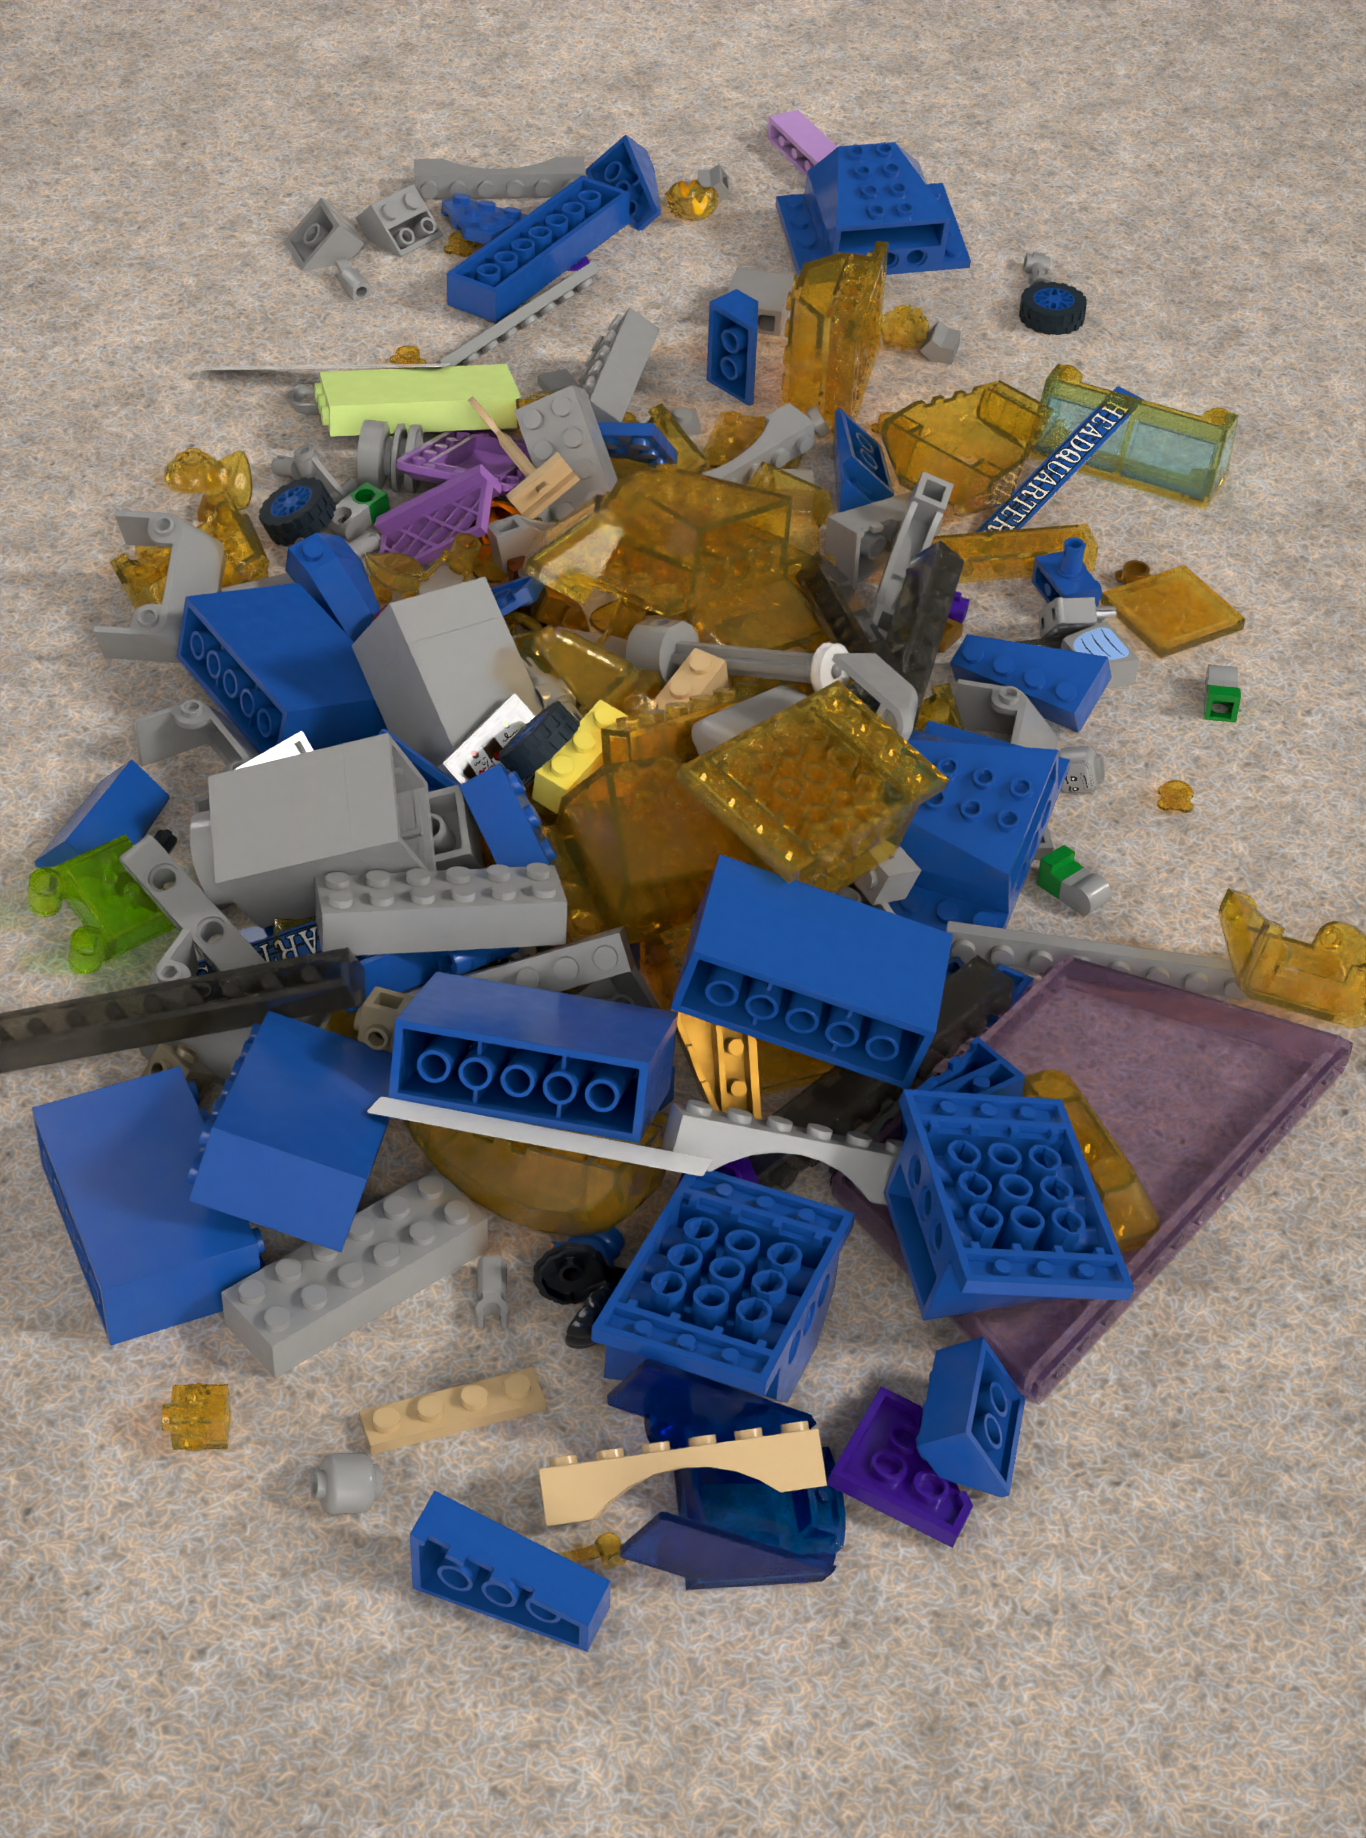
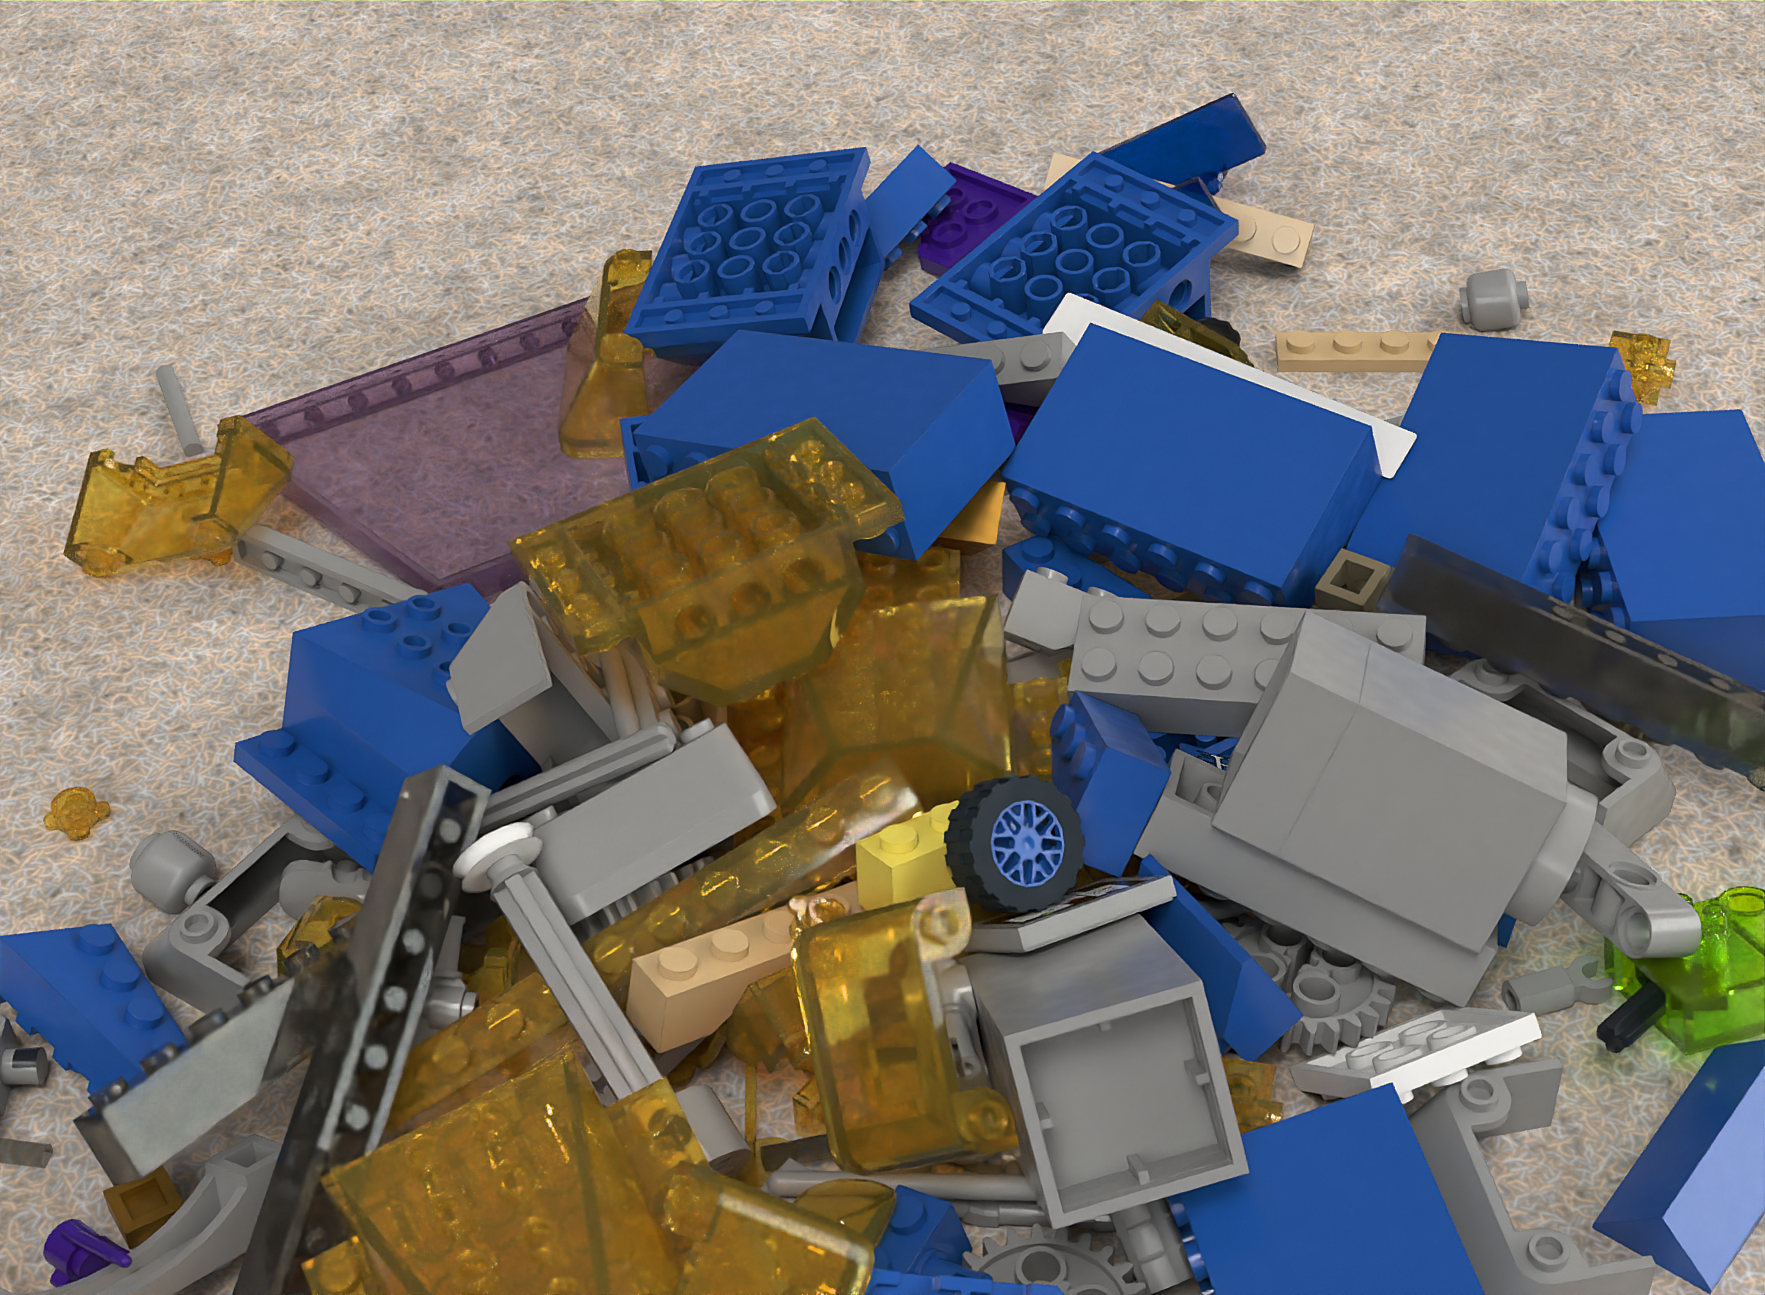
camera: 155 degrees left, 0 degrees up
(504, 1574) = (1369, 205): blue wedge -> none

